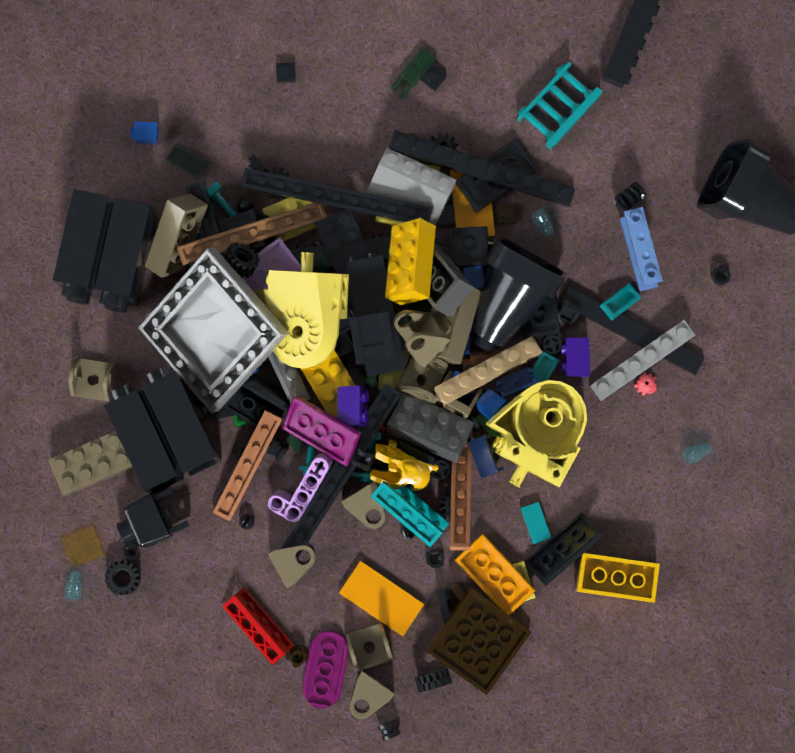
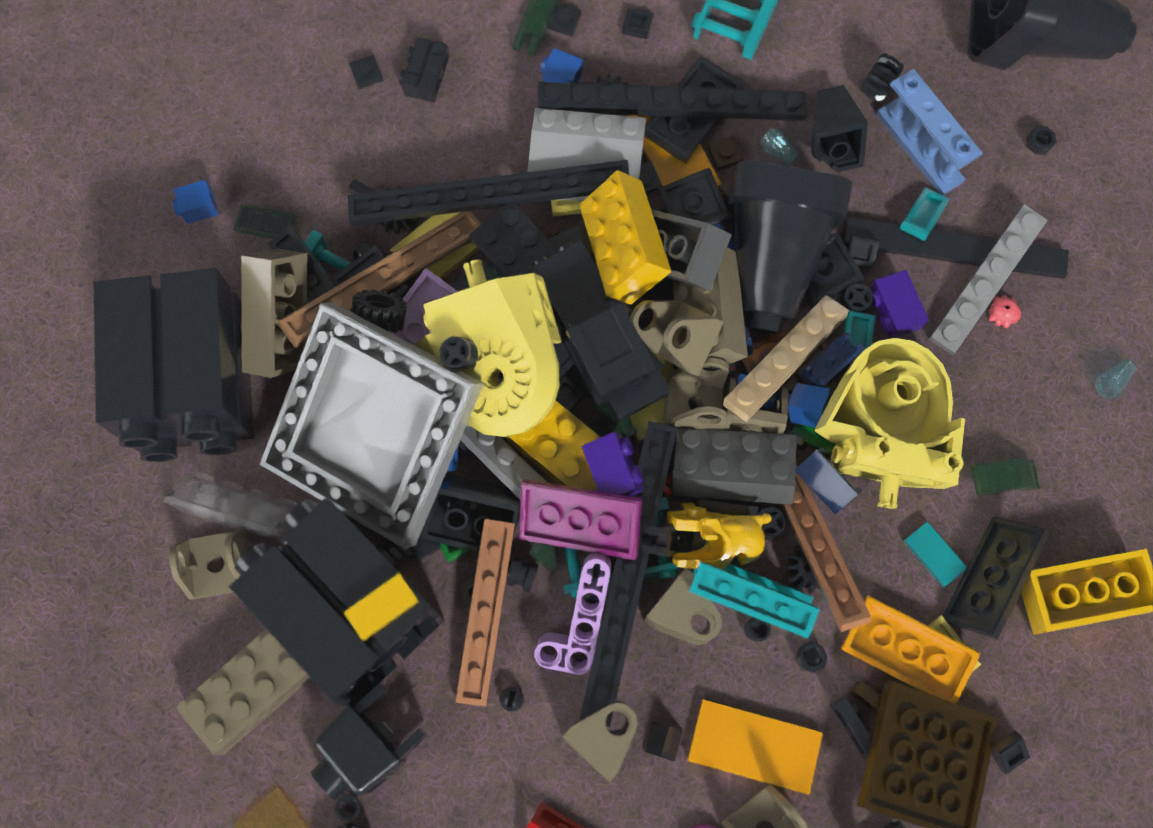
camera: 15 degrees left, 10 degrees down
(115, 349) = (230, 505): none -> clear slope
(187, 447) = (381, 607): none -> yellow tile
(275, 311) = (451, 351): none -> black wheel
(325, 86) = (425, 69): none -> black brick
(328, 577) = (663, 741): none -> black slope
(417, 118) = (561, 67): none -> blue brick
(482, 97) = (637, 23): none -> black tile
(530, 653) = (1010, 752): none -> black tile
(583, 224) = (838, 130): none -> black slope
(598, 491) = (1005, 476): none -> clear green slope

